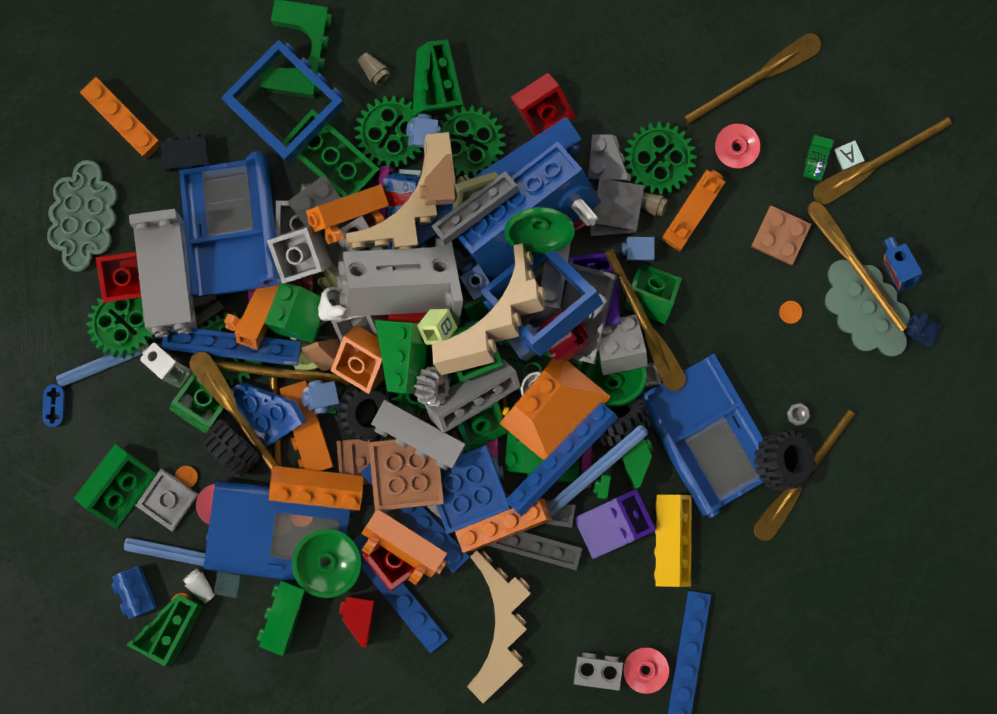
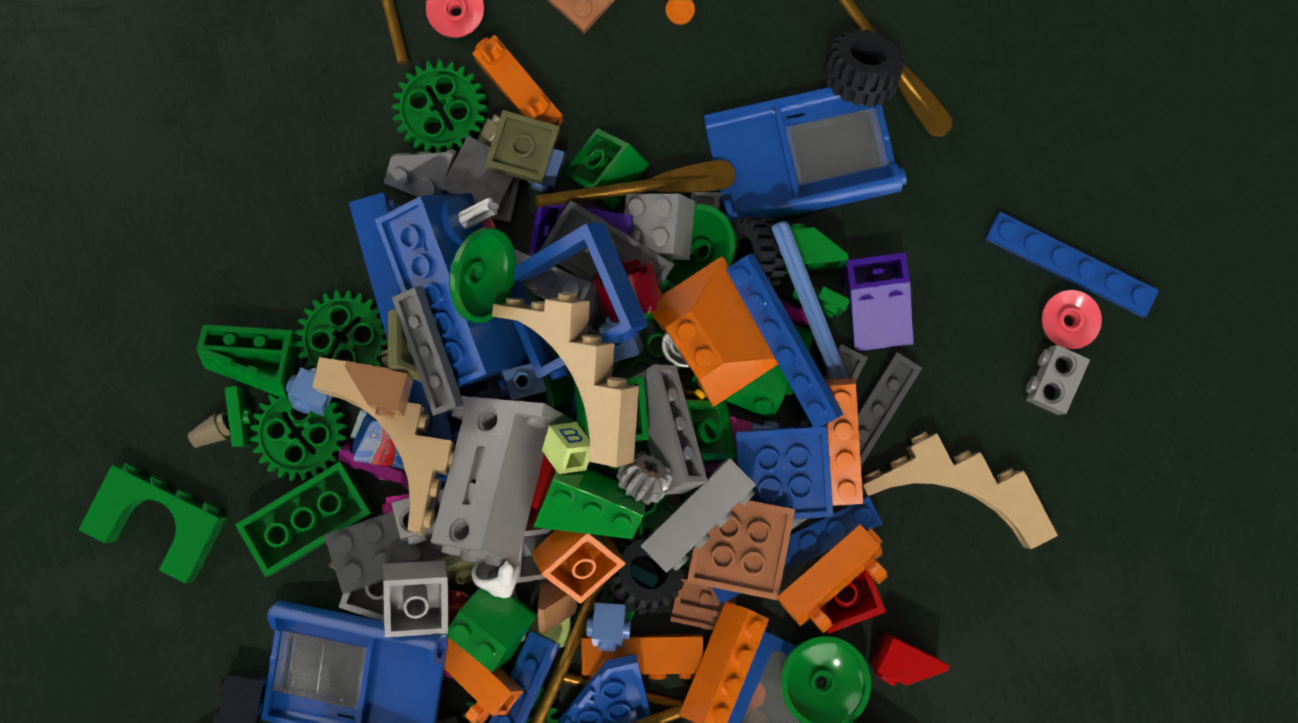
camera: 75 degrees left, 0 degrees up
(297, 145) = (260, 532): blue window -> none
(347, 208) = (376, 520): orange brick -> none
(363, 411) = (643, 575): none -> teal tile
(390, 85) = (239, 416): none -> green plate
(405, 605) = (905, 594): blue plate -> none
(542, 104) = (325, 232): red slope -> none
(647, 228) = (522, 147): none -> olive tile
(673, 540) = (922, 236): yellow brick -> none
(798, 414) = (809, 38): light grey tile -> none

